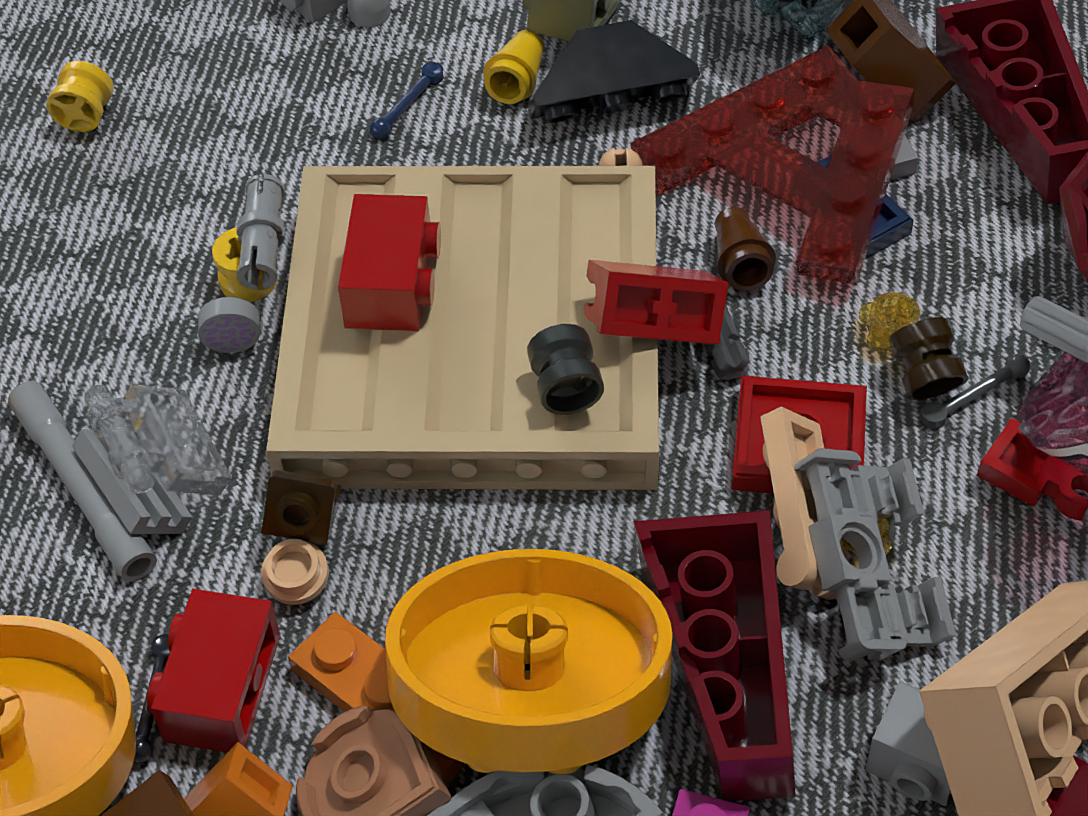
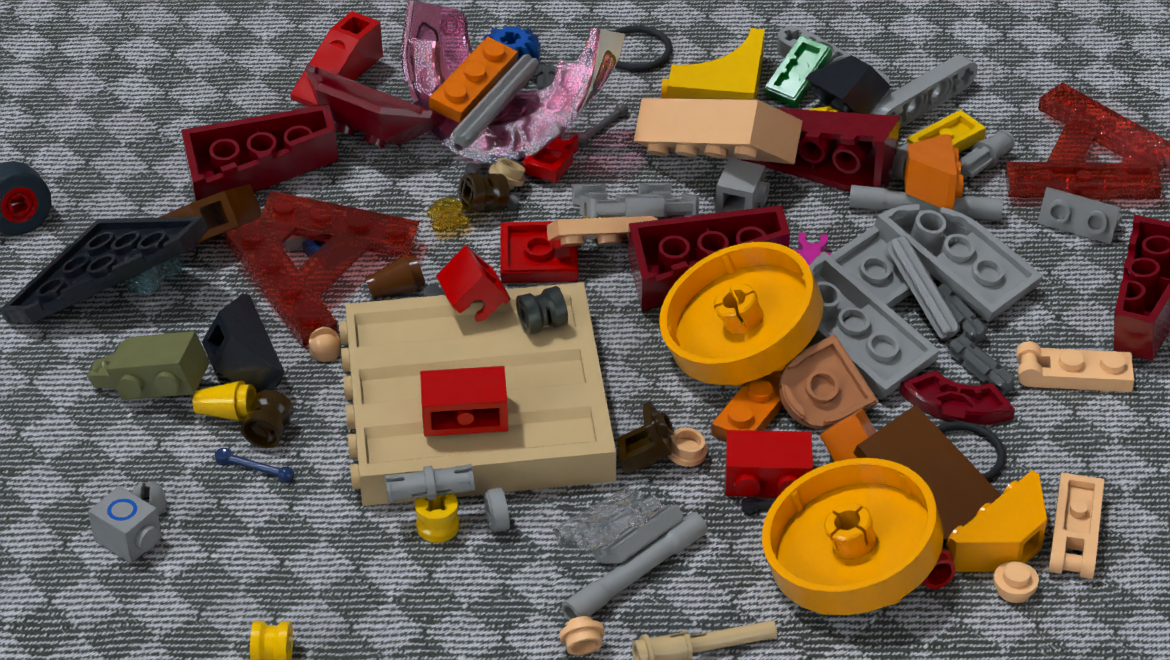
camera: 100 degrees left, 10 degrees down
(467, 100) = (267, 419): none -> dark brown wheel
(988, 402) = (512, 170): none -> tan plate

